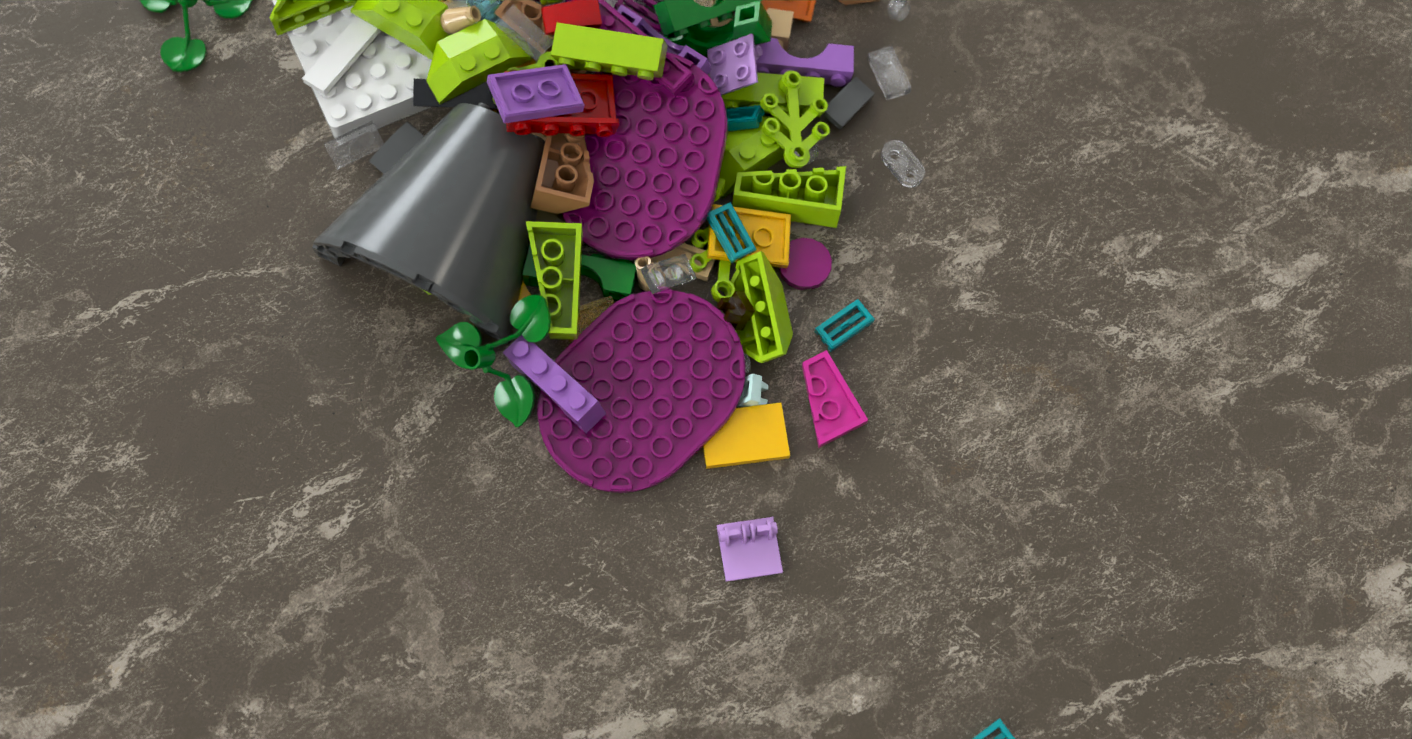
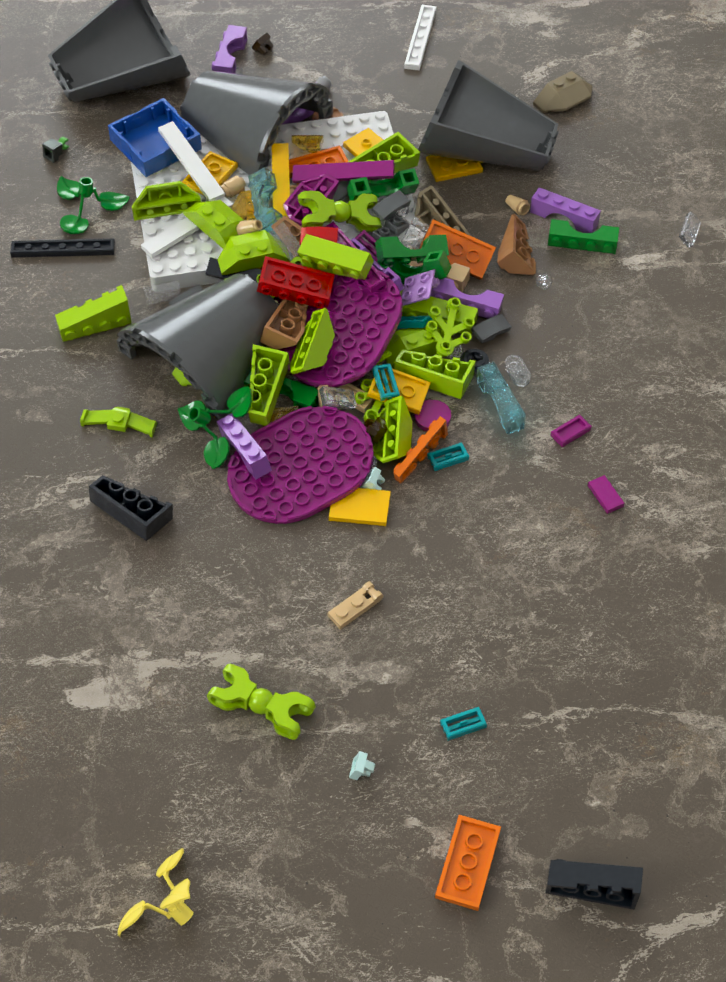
camera: 20 degrees right, 15 degrees down
(177, 98) = (56, 248): none -> black tile
(264, 210) = (95, 316): none -> lime wedge
(353, 374) = (119, 419): none -> lime plate
(418, 524) = (131, 508): none -> black wedge
(535, 93) = (280, 270): medium lavender tile -> none
(614, 200) = (314, 344): none -> lime wedge
(749, 549) = (341, 571): lavender hinge -> none
(783, 600) = (355, 605): none -> tan plate
(811, 318) = (436, 430): none -> orange wing
(830, 400) = (424, 496): dark pink wing -> none
(842, 151) = (478, 355): none -> black gear
(889, 72) = (526, 317): clear plate -> none
(911, 233) = (509, 410): none -> clear light blue arch
(1000, 244) = (570, 430): none -> magenta tile
(1076, 335) = (606, 494): none -> magenta tile

